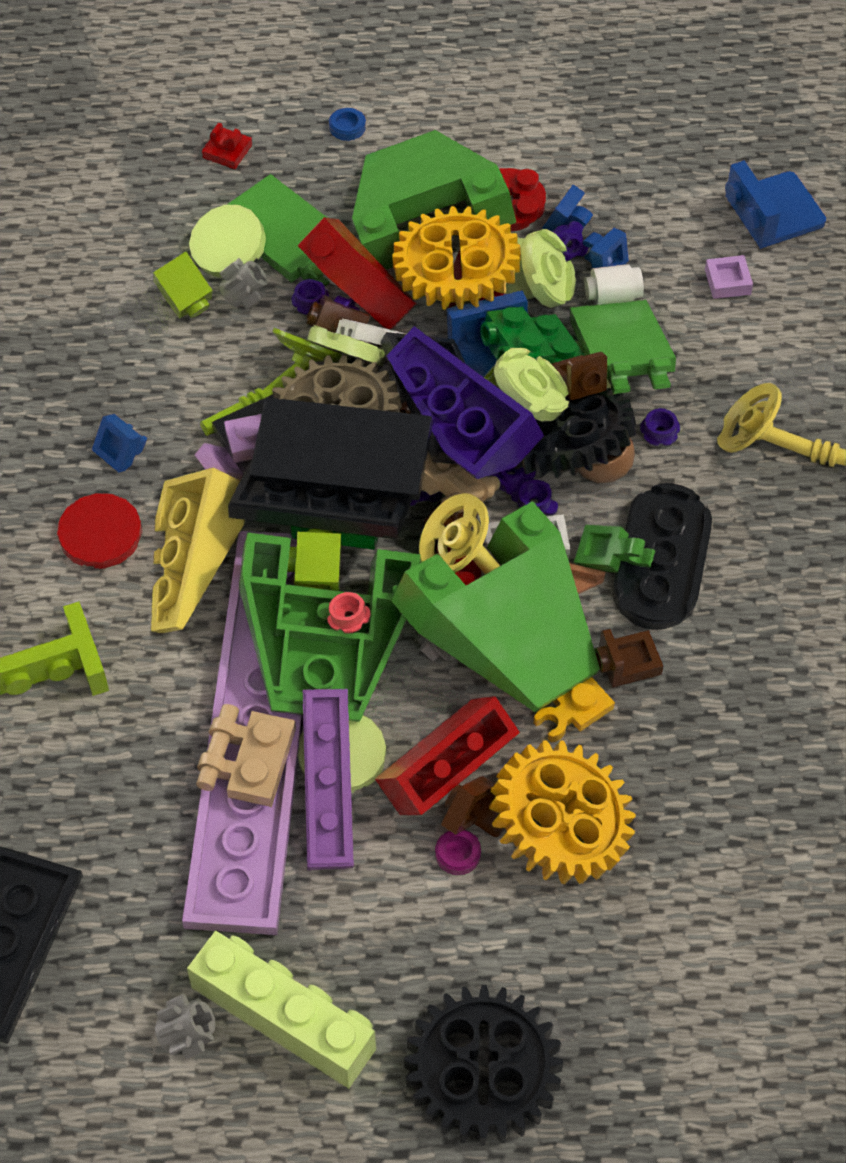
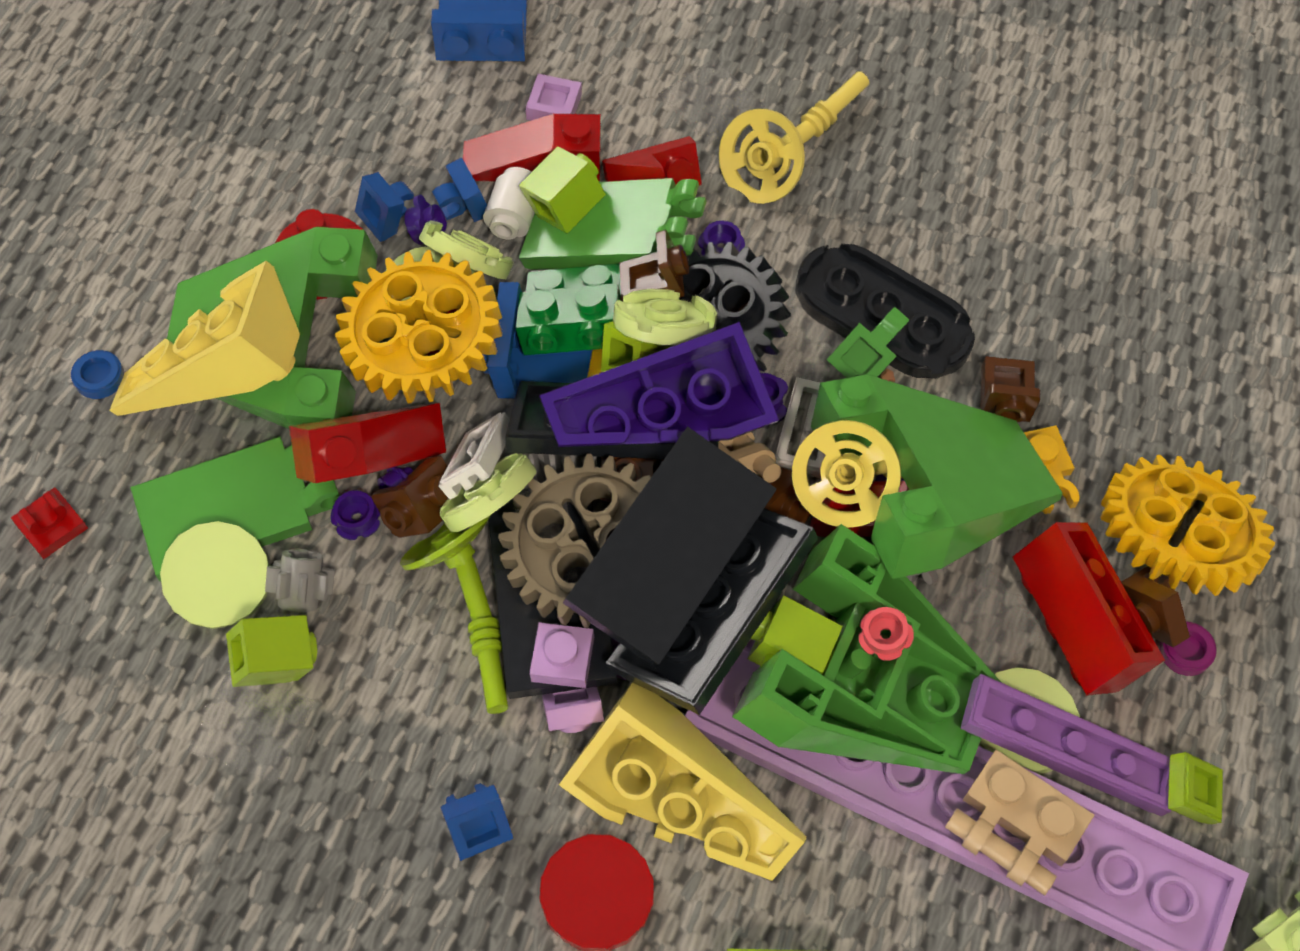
camera: 70 degrees left, 5 degrees up
(334, 879) = (1195, 788): none -> lime tile
(381, 165) = (218, 354): none -> light yellow wedge
(631, 300) = (563, 188): none -> lime brick
(674, 287) = (531, 143): none -> slope
(699, 360) = (667, 160): none -> red slope

